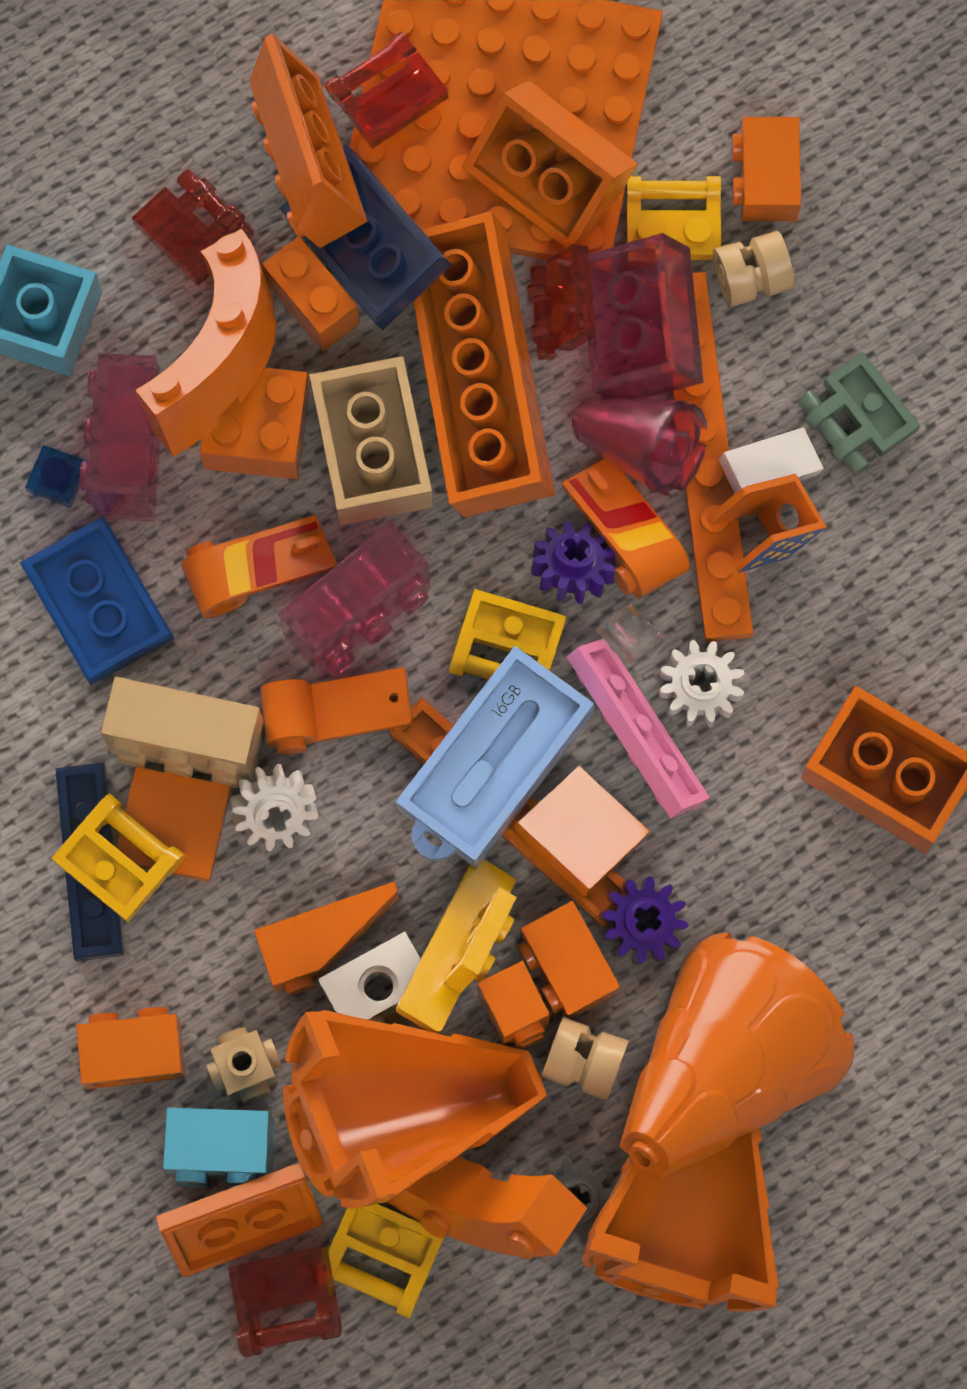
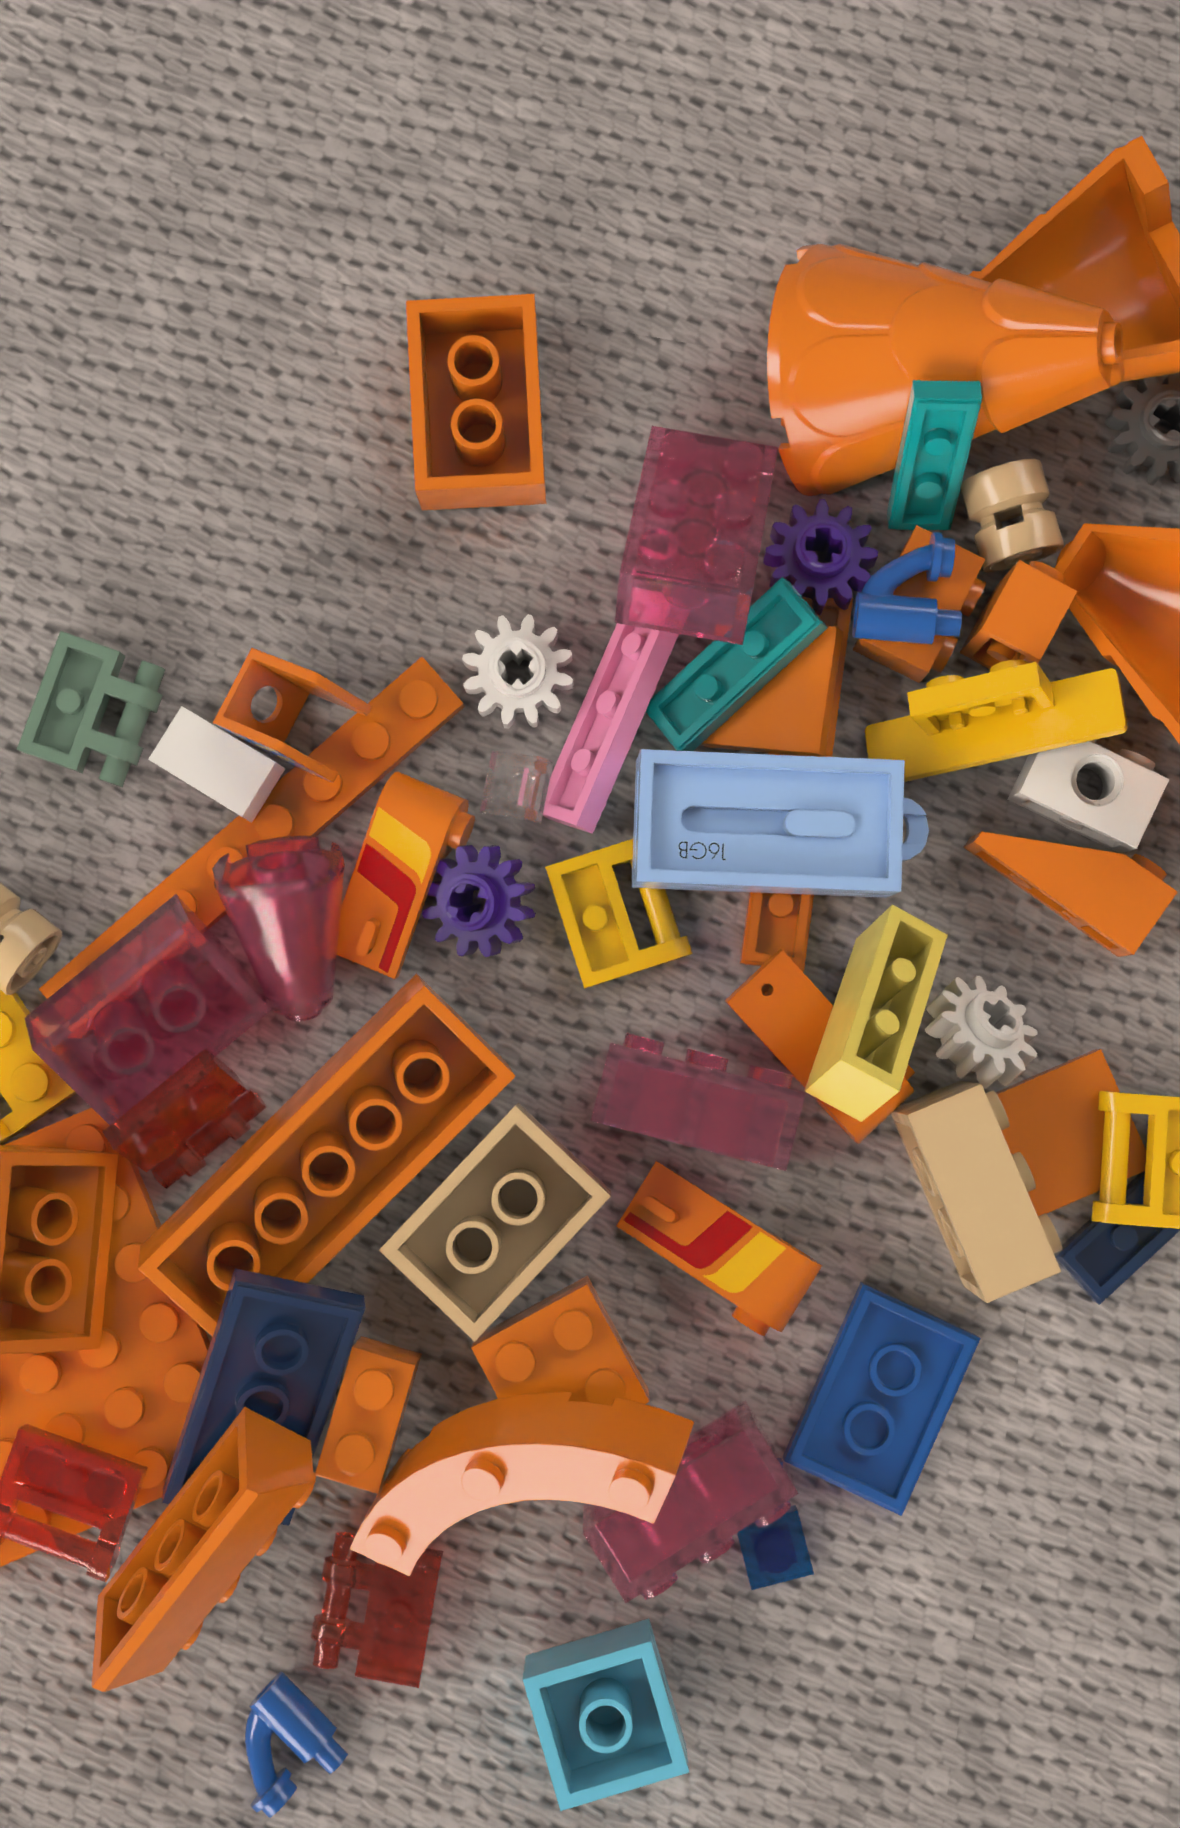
camera: 120 degrees left, 10 degrees up
(158, 139) = (300, 1725): none -> blue plant
(332, 742) = (877, 1014): none -> light yellow brick
(564, 929) = (906, 618): none -> blue plant
(609, 815) = (732, 673): none -> teal tile
(655, 1018) = (933, 454): none -> teal tile
(709, 840) = (695, 535): none -> clear pink brick

